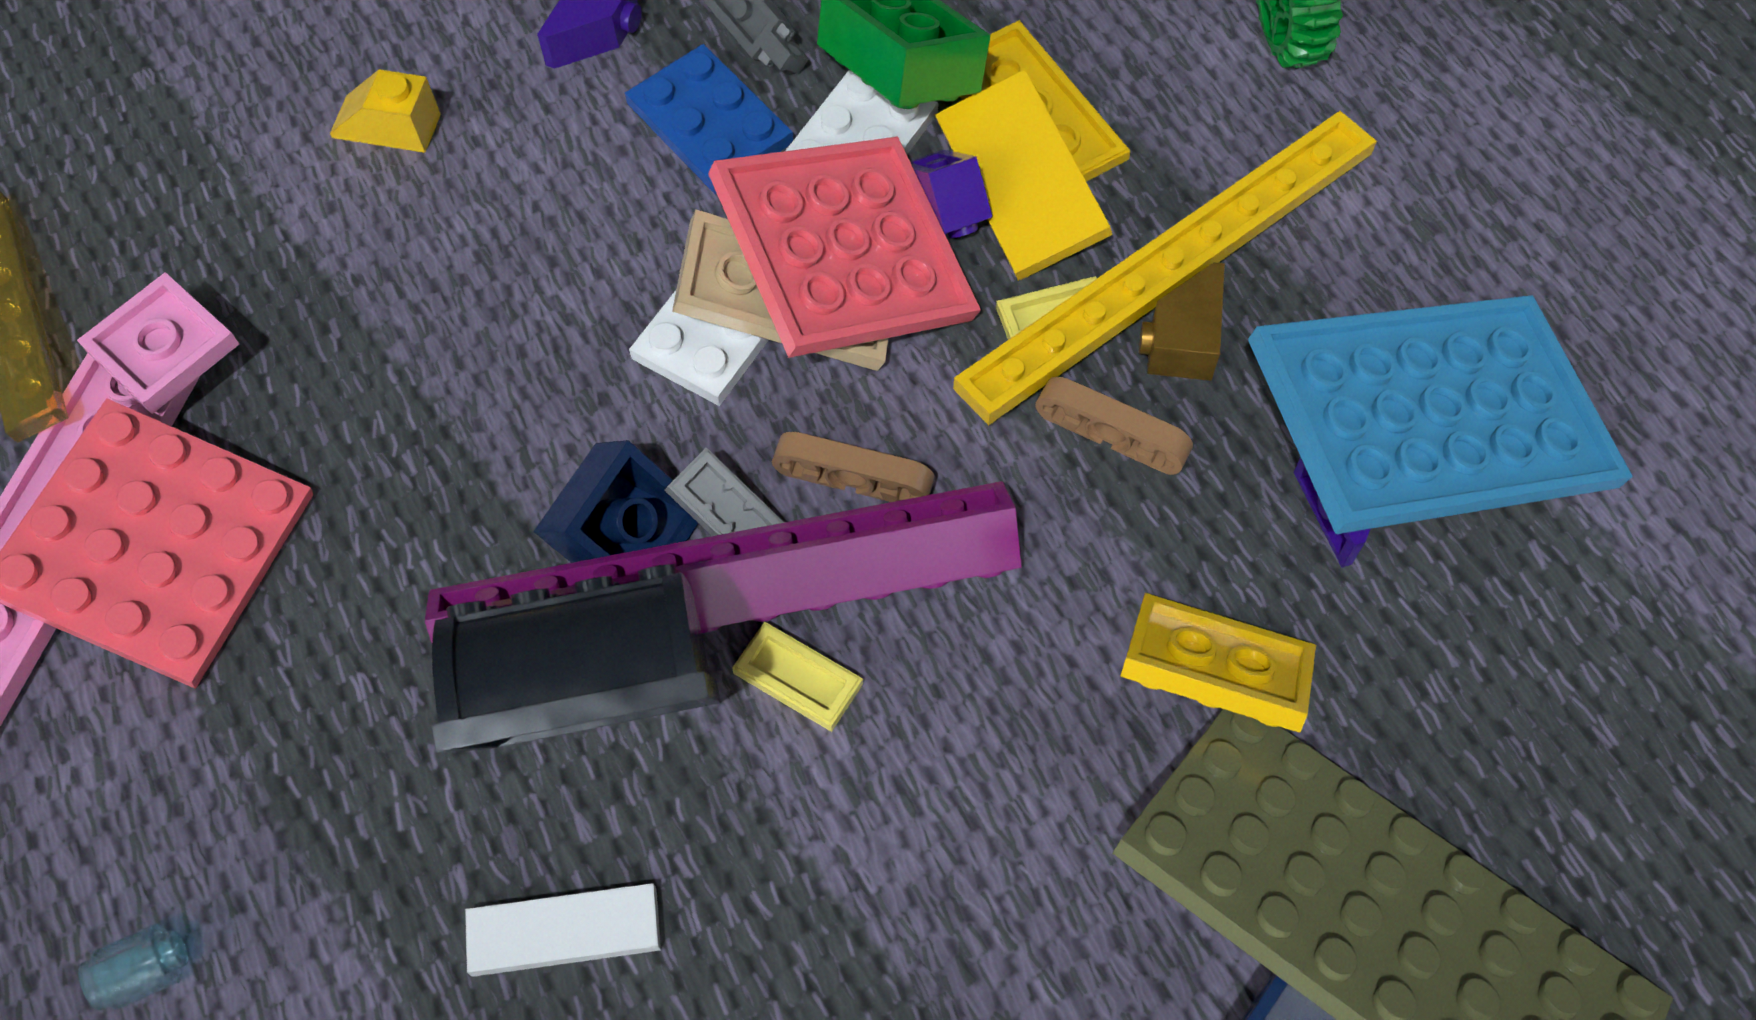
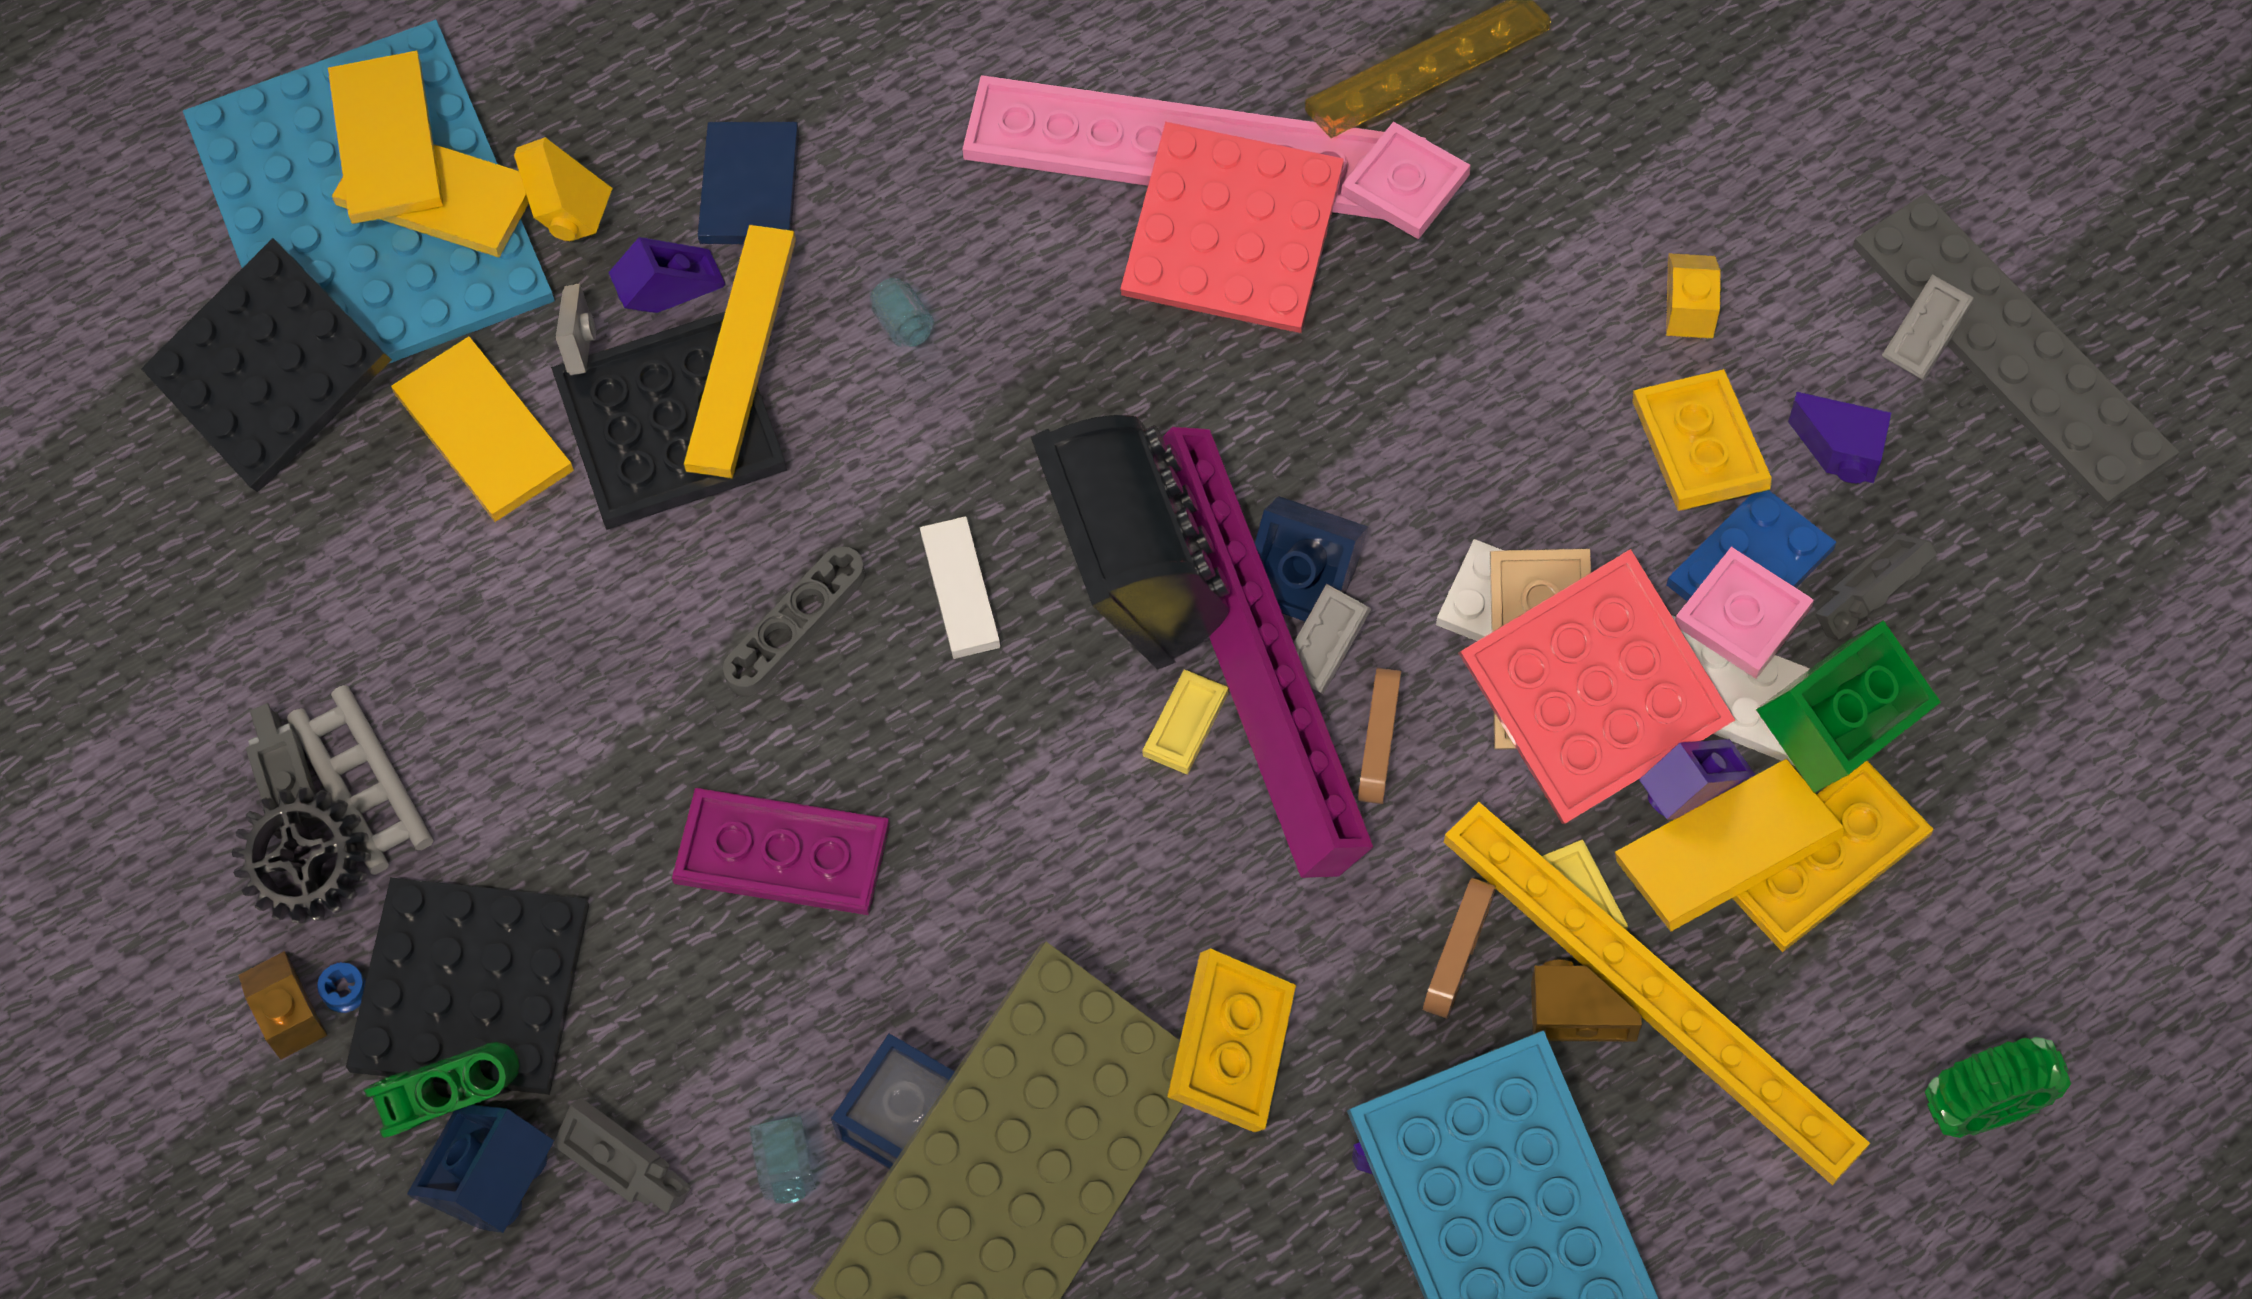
camera: 85 degrees right, 0 degrees up
(563, 129) = (1701, 440): none -> yellow plate
(777, 109) = (1743, 612): none -> bright pink plate

